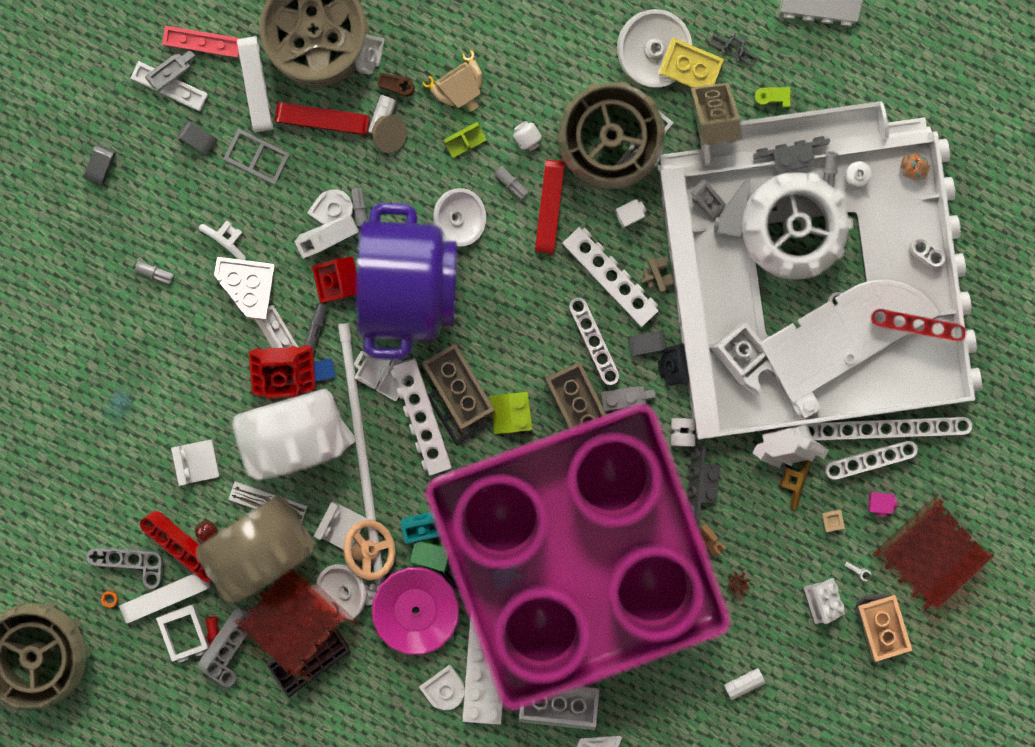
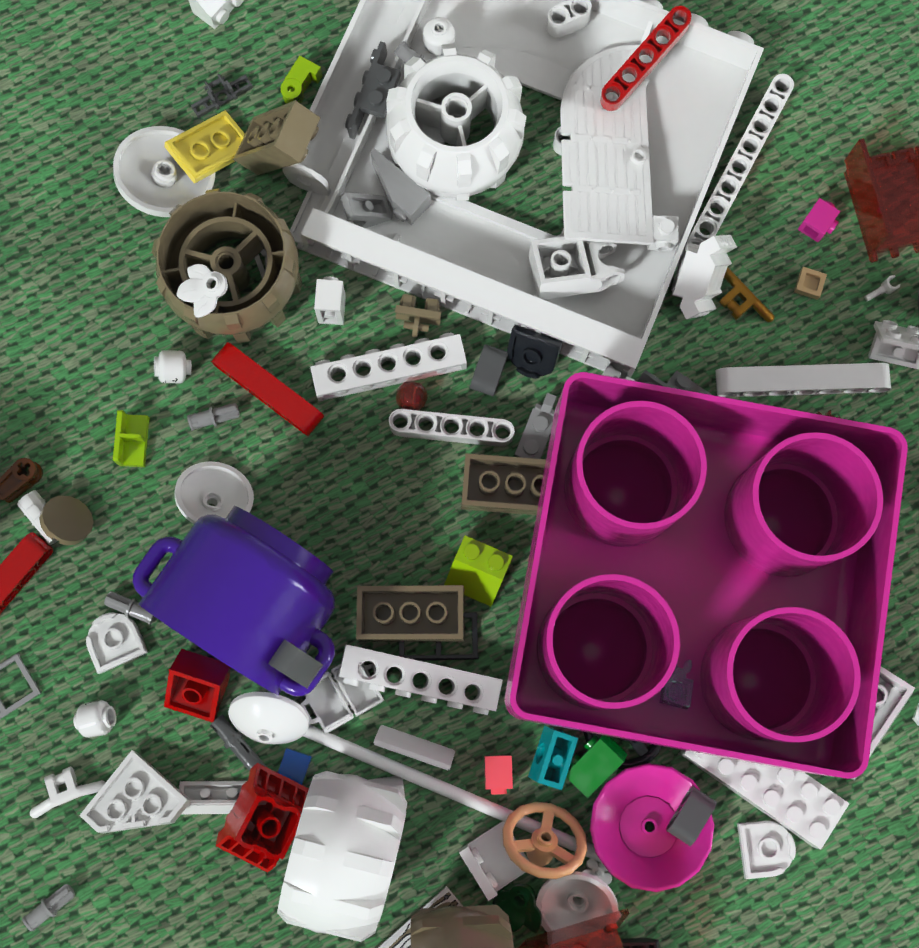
camera: 65 degrees left, 10 degrees down
(279, 229) = (94, 718): none -> white head
(318, 558) = (520, 911): none -> dark green plate
(325, 236) = (136, 665): white slope -> none
(342, 338) = (268, 717): none -> white dish
(378, 437) = (414, 747): none -> white slope
(382, 341) = (295, 664): none -> dark grey beam
(392, 498) = (498, 773): none -> coral brick
(435, 630) = (691, 816): none -> dark grey beam
(459, 85) = (64, 408): tan torso -> none
(577, 135) = (199, 291): none -> white plate
(599, 303) = (411, 396): none -> clear red piece
(762, 551) = (803, 379): none -> white beam
(880, 460) = (768, 194): white beam -> none

